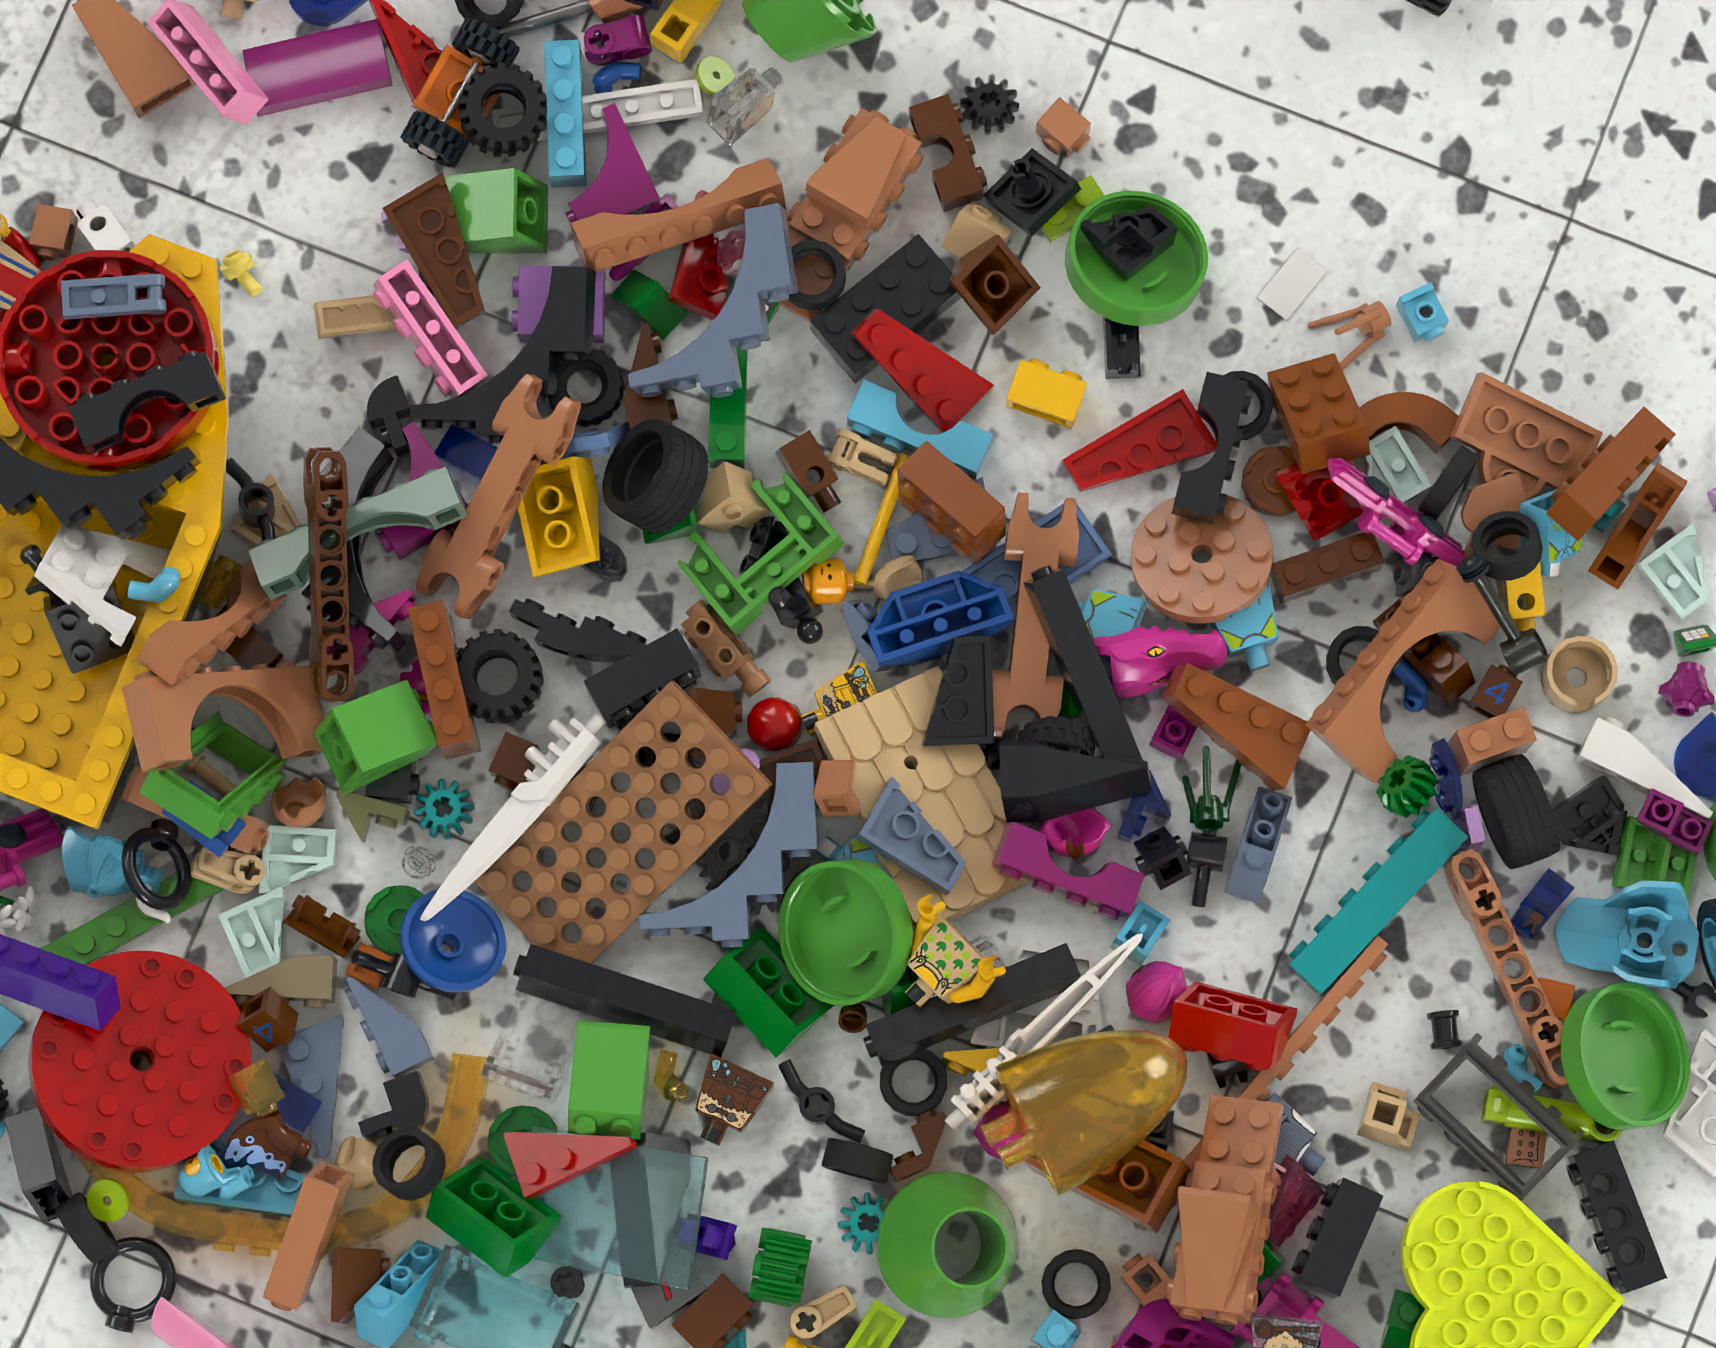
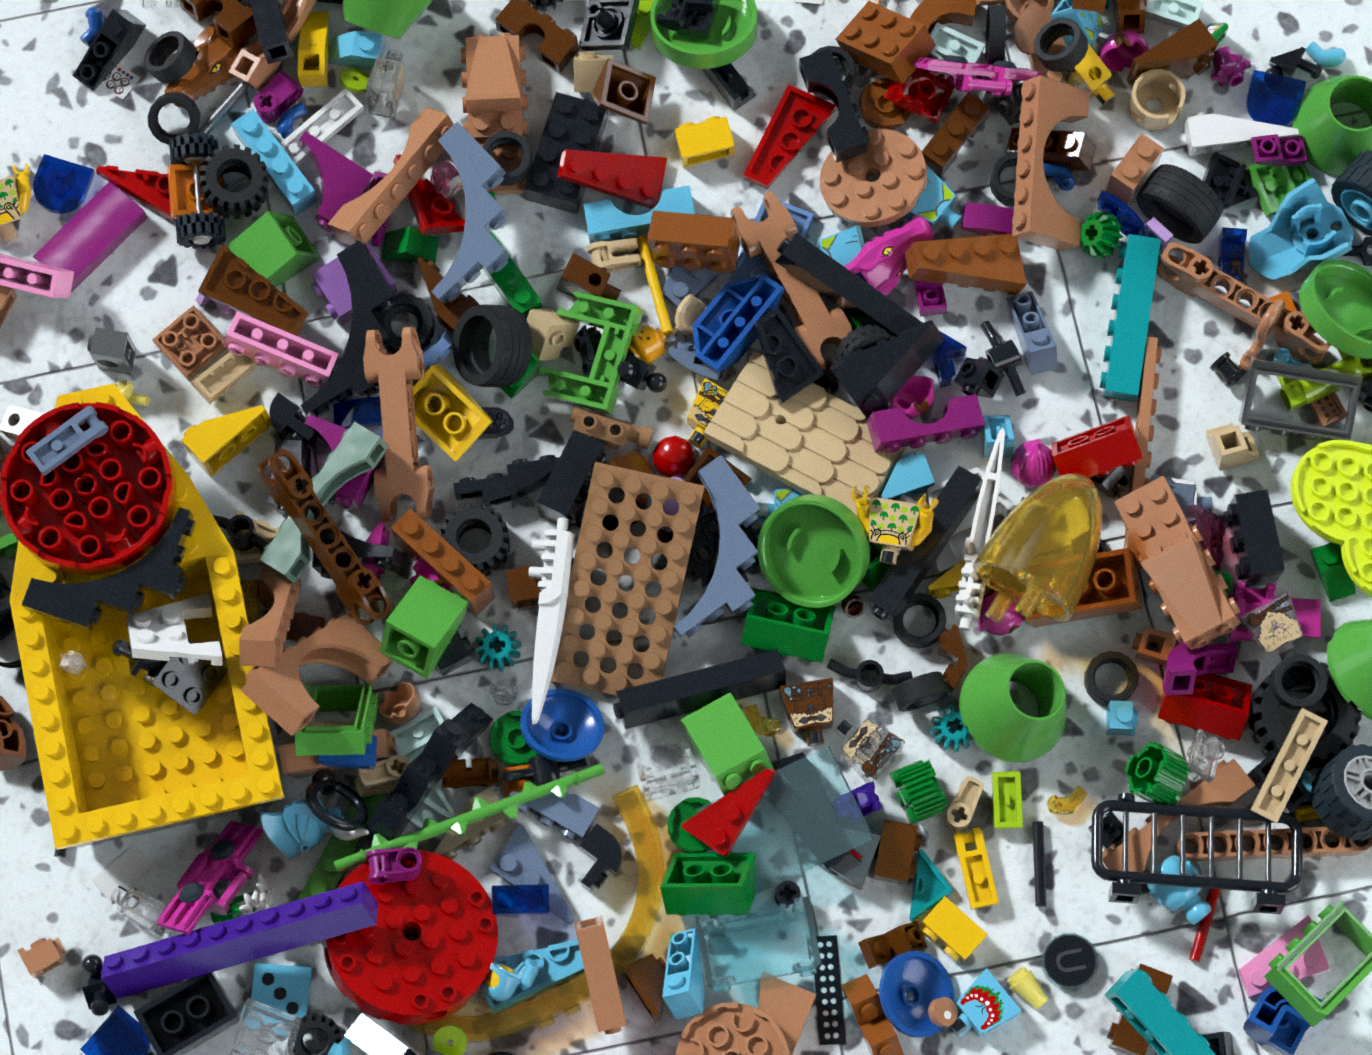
camera: 35 degrees left, 5 degrees down
(104, 416) = (155, 462): black arch -> none
(158, 589) = (221, 614): medium azure arm -> none
(165, 974) = (391, 866): none -> magenta piece
(252, 213) = (112, 350): none -> dark grey brick
(257, 1089) = (501, 900): clear yellow brick -> none
(264, 1145) = (529, 937): reddish brown arm -> none
(268, 897) = (424, 773): none -> black arch
(268, 1020) = (476, 855): reddish brown brick -> none
(269, 975) = (480, 810): none -> bright green plant
(299, 388) = (223, 438): none -> yellow slope
(345, 256) = (190, 343): none -> nougat tile
(356, 1157) = (599, 904): tan piece -> none
(362, 808) = (441, 682): olive slope -> none
(391, 1149) = (615, 881): black tyre -> none
(738, 43) = (356, 49): none -> medium azure slope
(761, 1183) = (868, 748): none -> torso
(834, 788) = (746, 463): nougat panel -> none
(908, 840) = (813, 467): sand blue wing -> none
(1007, 917) = (909, 477): none -> medium azure slope
(1209, 812) = (988, 329): dark green plant -> none
(1295, 684) = (987, 219): none -> magenta slope
(1495, 692) = (1112, 144): reddish brown brick -> none
(1506, 1016) = (1266, 322): none -> nougat animal
(1522, 648) = (1111, 104): pearl dark grey piece -> none
(1579, 593) = (1121, 49): none -> dark pink hair
(1637, 641) = (1182, 54): none -> reddish brown slope

